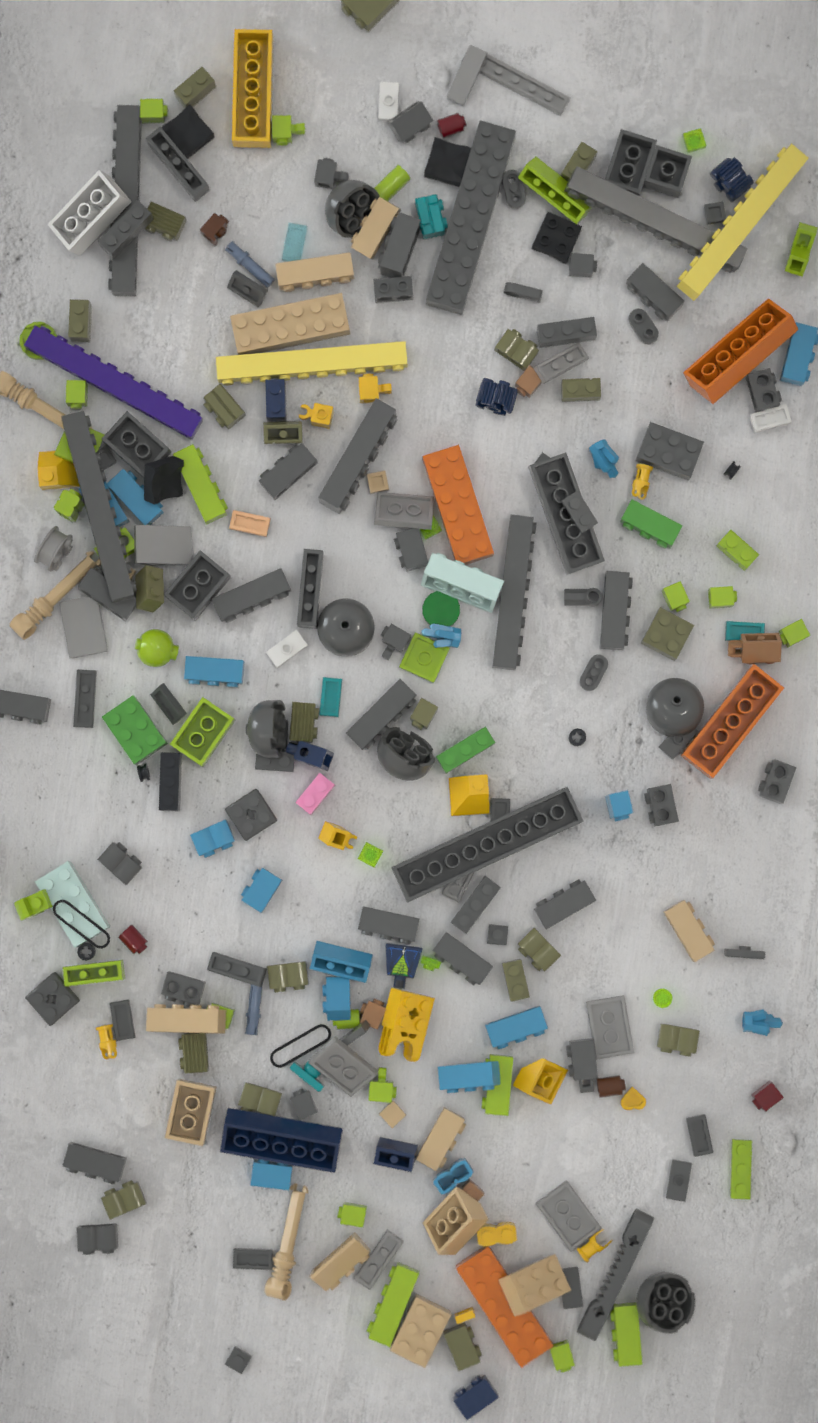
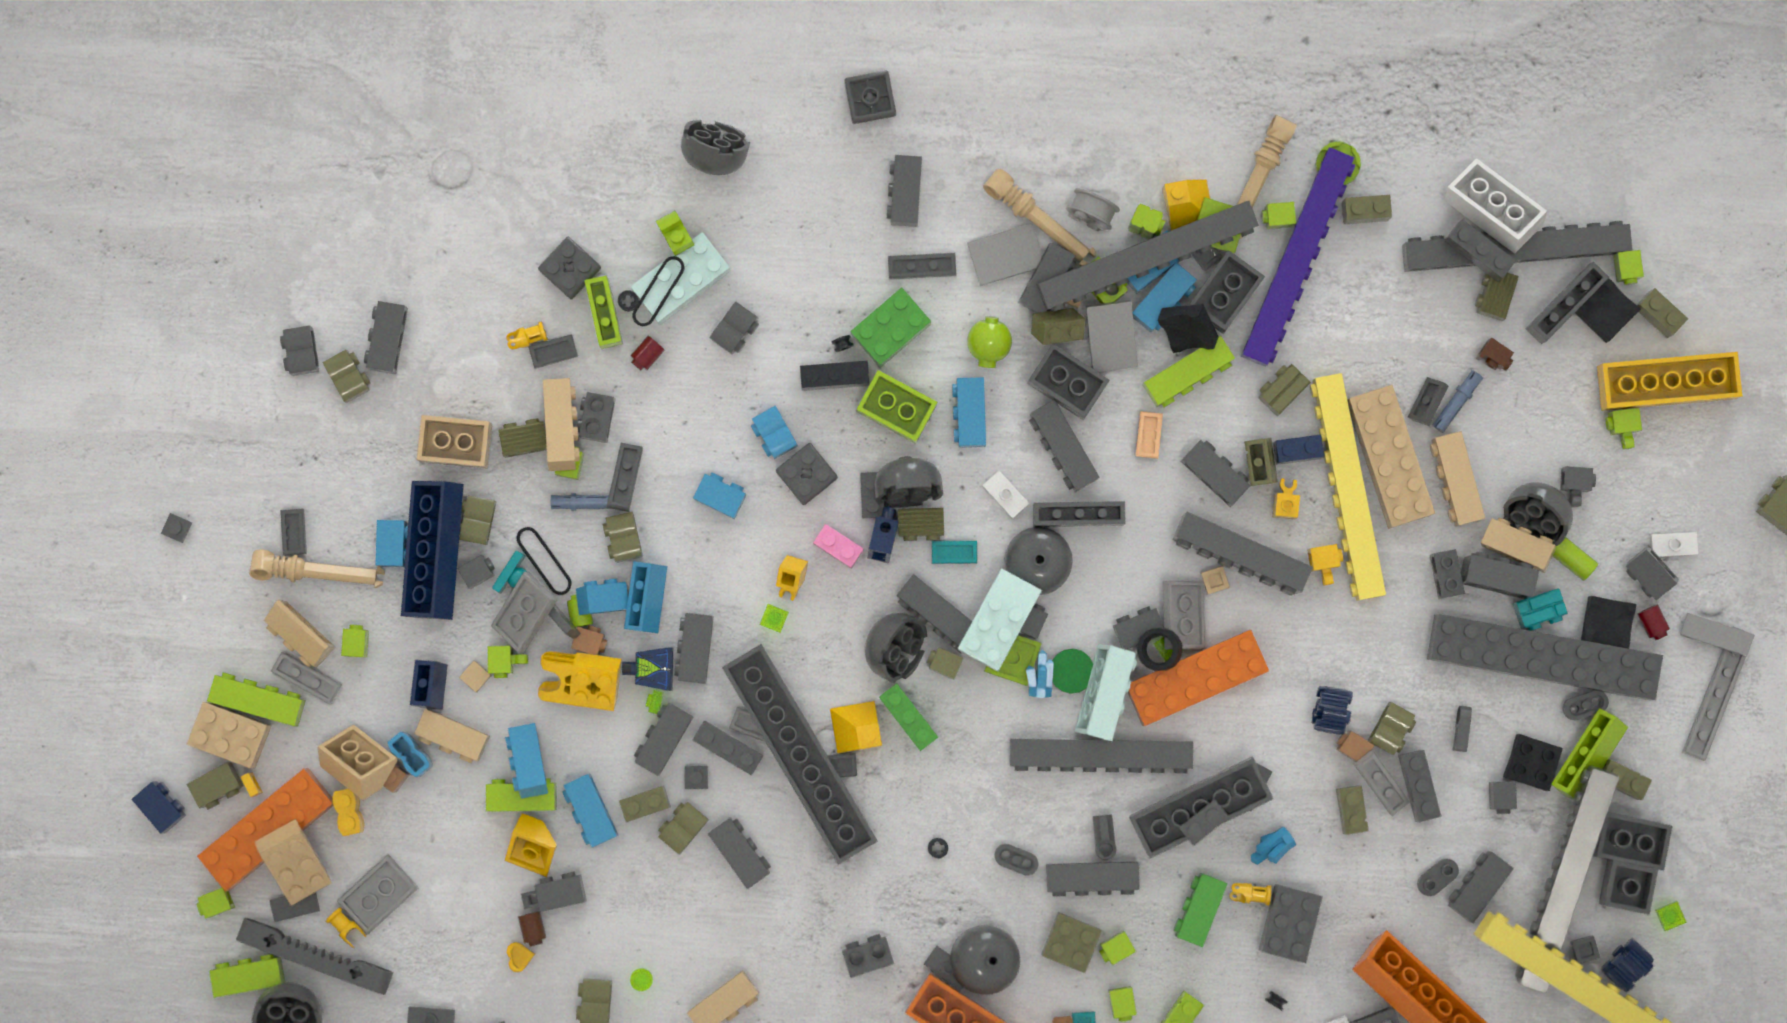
camera: 80 degrees right, 0 degrees up
(168, 704) = (925, 363): dark grey plate -> none
(294, 242) = (1490, 451): clear light blue tile -> none
(392, 664) = (999, 620): none -> light aqua brick
(431, 547) = (1176, 645): none -> black tyre
(610, 1027) = (601, 921): light grey tile -> none
(619, 805) = (860, 905): dark azure brick -> none

